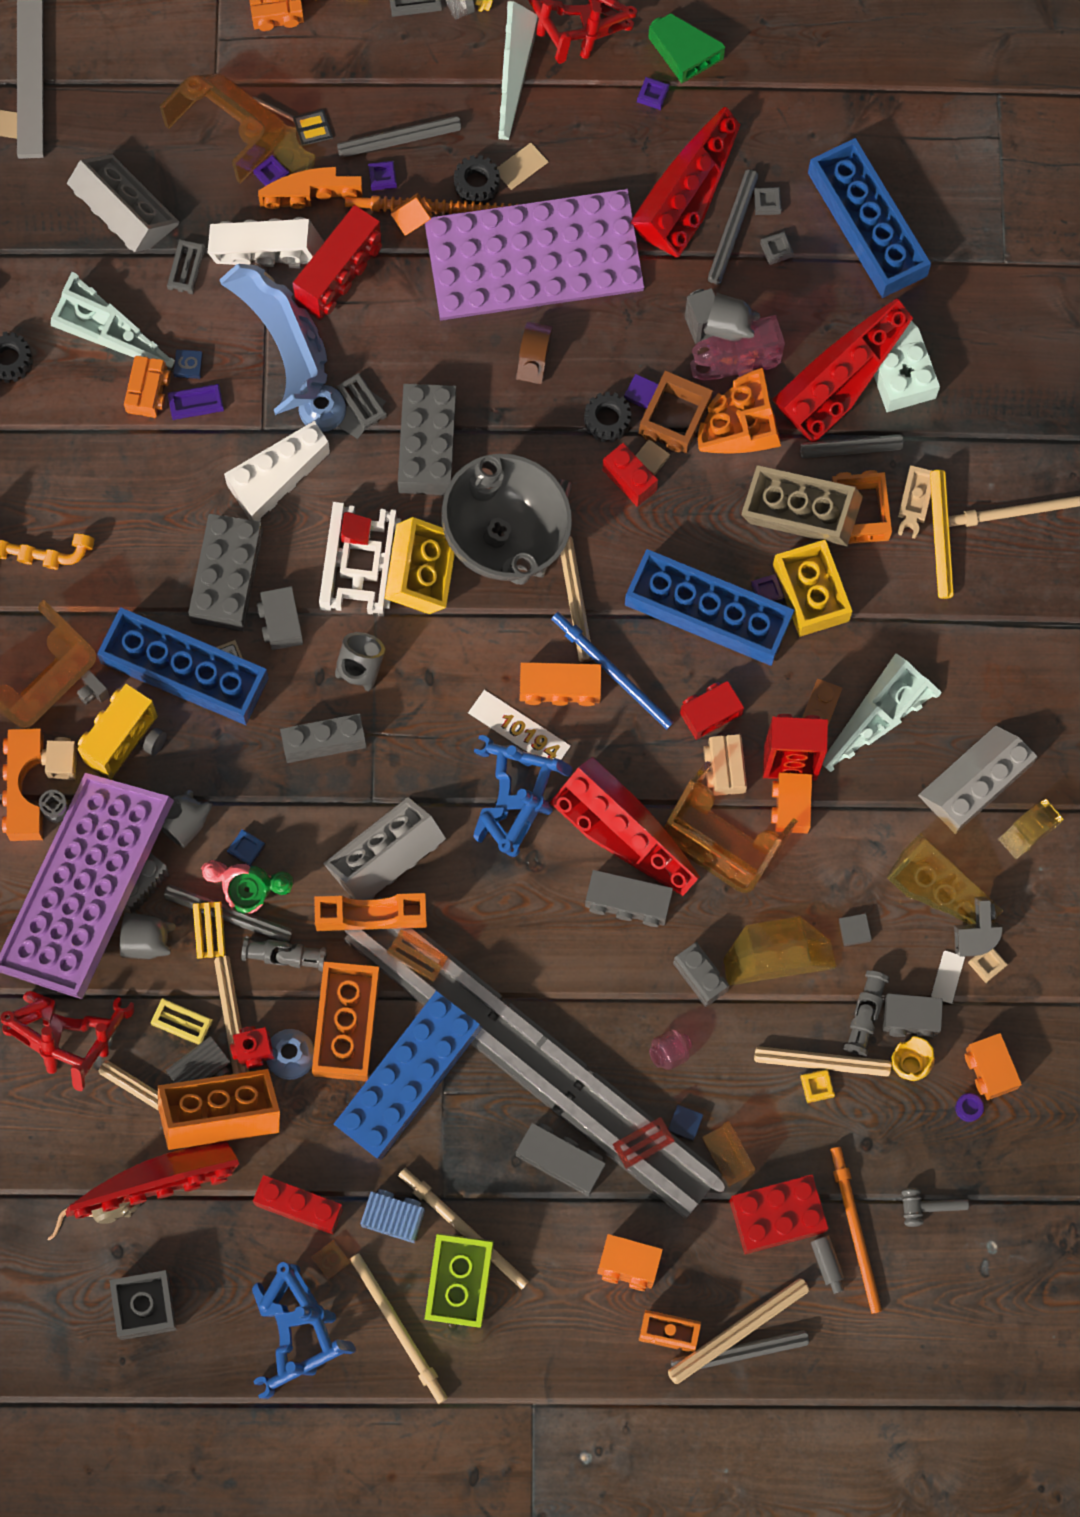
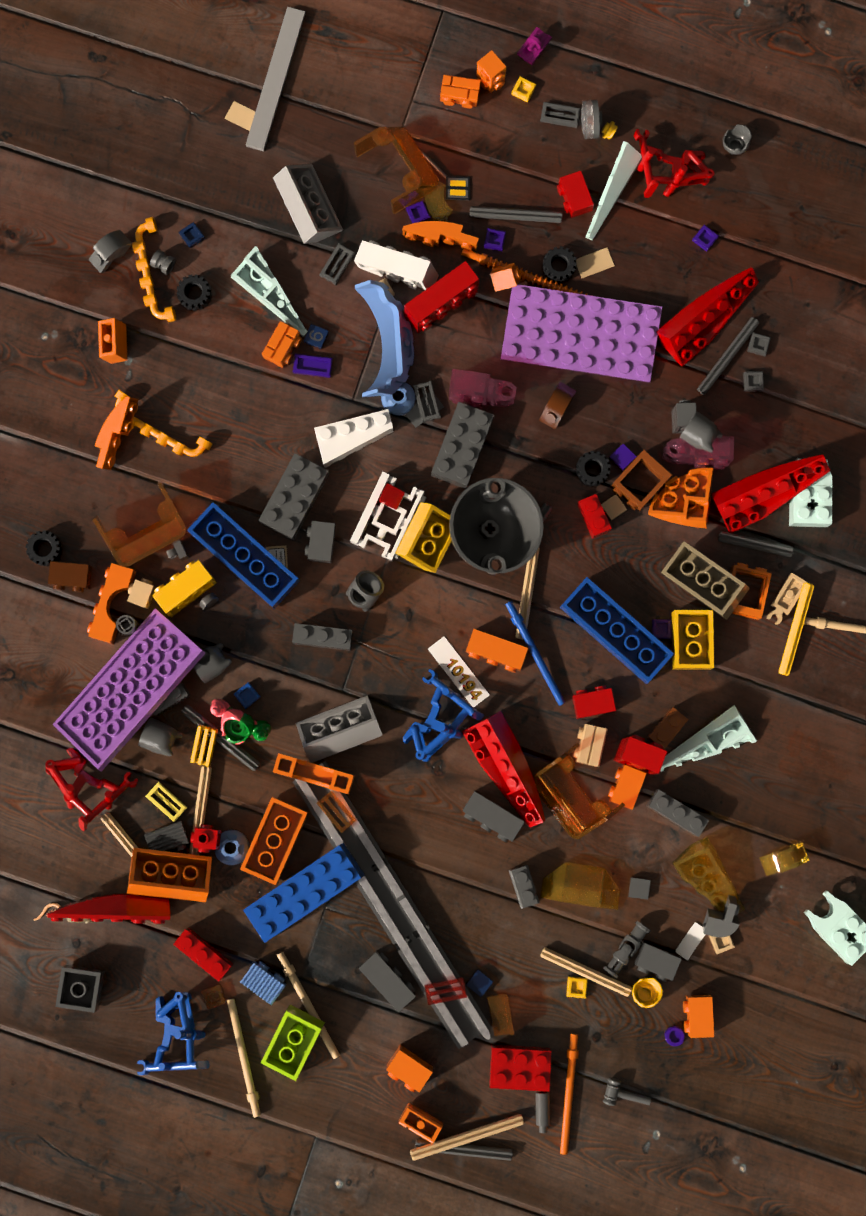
camera: 20 degrees right, 10 degrees up
(288, 954) = (252, 780): dark grey piece -> none
(426, 360) = (479, 389): none -> clear pink brick
(467, 88) = (575, 194): none -> red brick
(670, 1049) = (485, 931): clear pink head -> none
(684, 46) = (738, 210): green slope -> none
(869, 218) = (825, 381): blue brick -> none
(870, 814) = (677, 813): none -> dark grey brick
(978, 778) = (760, 810): light grey slope -> none

